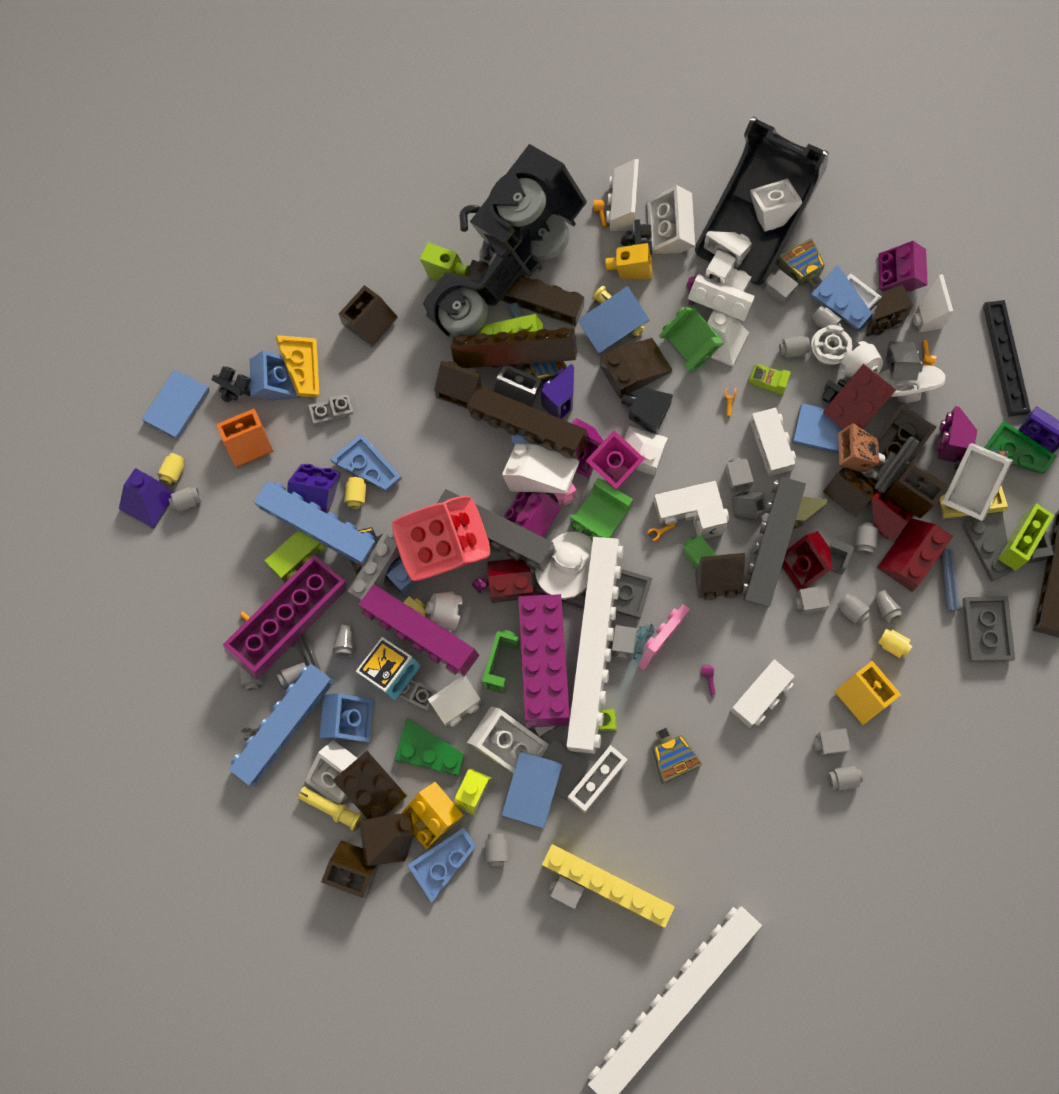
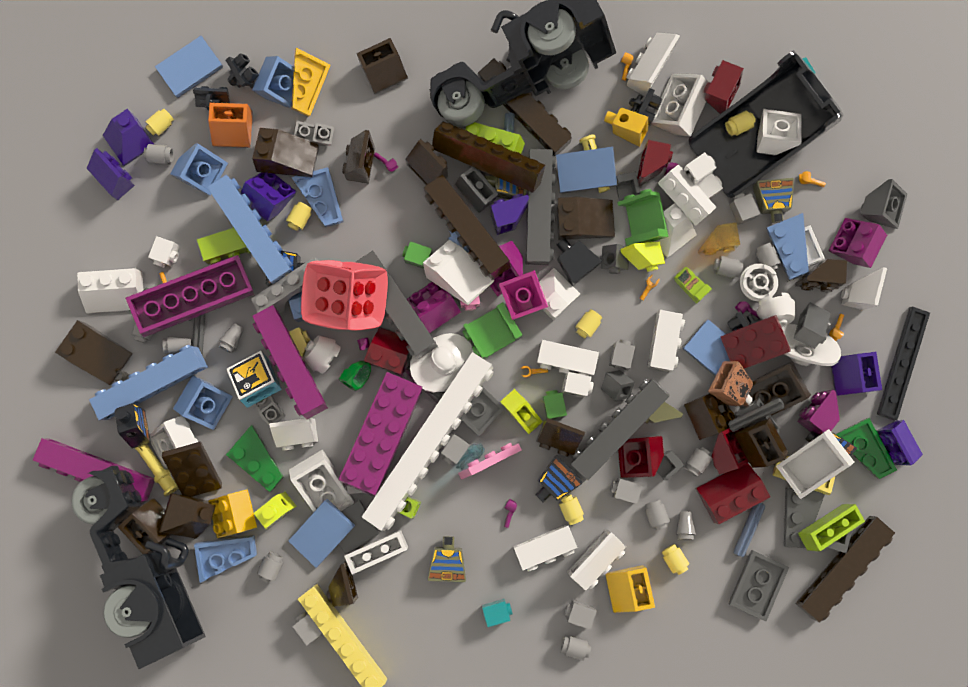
camera: 20 degrees right, 10 degrees up
(145, 539) = (109, 174): none -> dark purple slope
(197, 653) = (108, 289): none -> white slope
(207, 422) = (208, 95): none -> black hips
(210, 722) = (93, 352): none -> dark brown slope
(233, 494) = (199, 168): none -> medium blue slope
(236, 590) = (164, 252): none -> white brick
(266, 840) = (79, 463): none -> magenta brick
(281, 768) = (132, 419): none -> black torso
(312, 440) = (284, 153): none -> slope
(384, 929) = (147, 587): none -> black piece
(388, 409) = (360, 158): none -> dark brown slope
(422, 403) = (391, 165): none -> magenta hand
(440, 260) = (466, 49): lime torso -> none
(488, 618) = (356, 375): none -> green rock
(489, 680) = (329, 430): bright green panel -> none
(490, 474) = (416, 254): none -> bright green brick
(581, 832) = (342, 587): none -> dark brown slope
(592, 383) = (539, 212): none -> dark grey brick
(659, 316) = (627, 185): none -> dark grey panel
(669, 573) = (521, 411): none -> neon yellow slope
(671, 282) = (653, 160): none -> dark red slope
(684, 387) = (613, 259): none -> dark grey brick
(690, 461) = (588, 324): none -> light yellow brick
(702, 186) = (723, 86): none -> dark red slope
(710, 371) = (644, 255): none -> neon yellow slope
(728, 242) = (719, 150): white slope -> none
(735, 213) = (740, 123): none -> light yellow brick
(739, 623) = (557, 480): none -> torso
(749, 781) = (497, 612): none -> teal brick
(768, 644) = (571, 509): none -> light yellow brick
(775, 322) = (722, 237): none -> clear yellow slope
(820, 680) = (597, 560): none -> white slope
(822, 234) = (805, 178): none -> light orange hand
(830, 374) = (745, 306): none -> magenta hand
(908, 223) = (885, 204): none -> dark grey slope
(969, 385) = (857, 374): none -> dark purple slope

